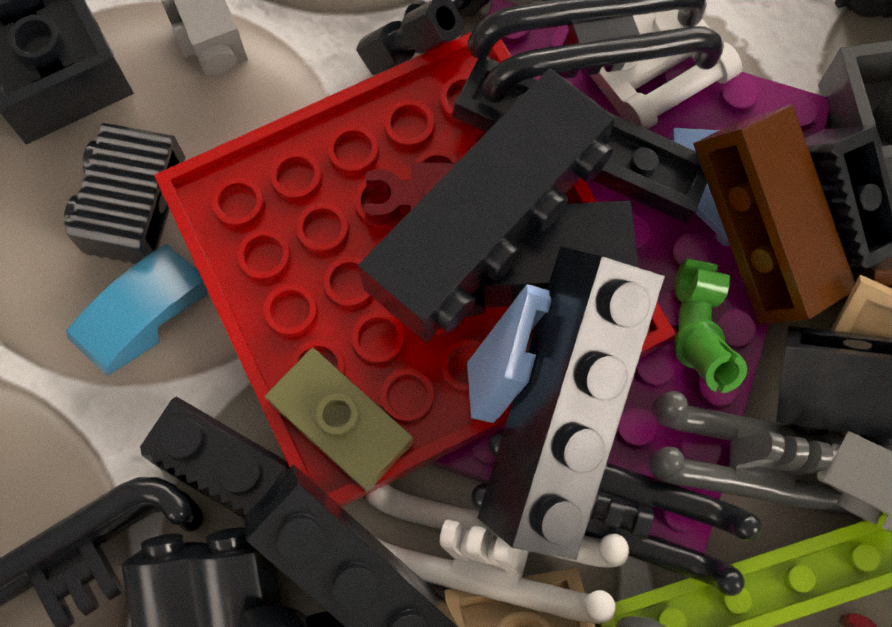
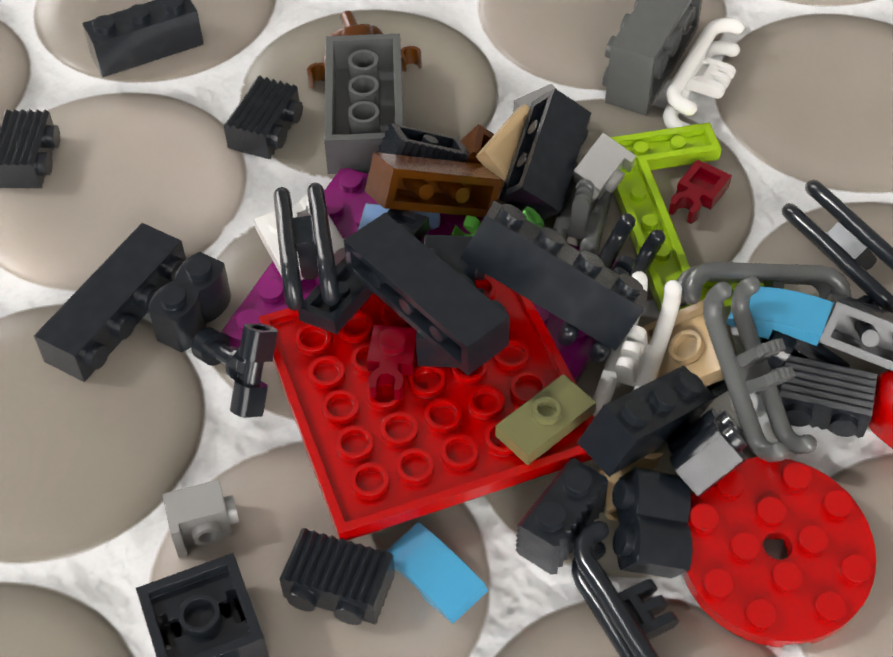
camera: 85 degrees left, 20 degrees down
(501, 362) = (526, 306): light blue tile -> none

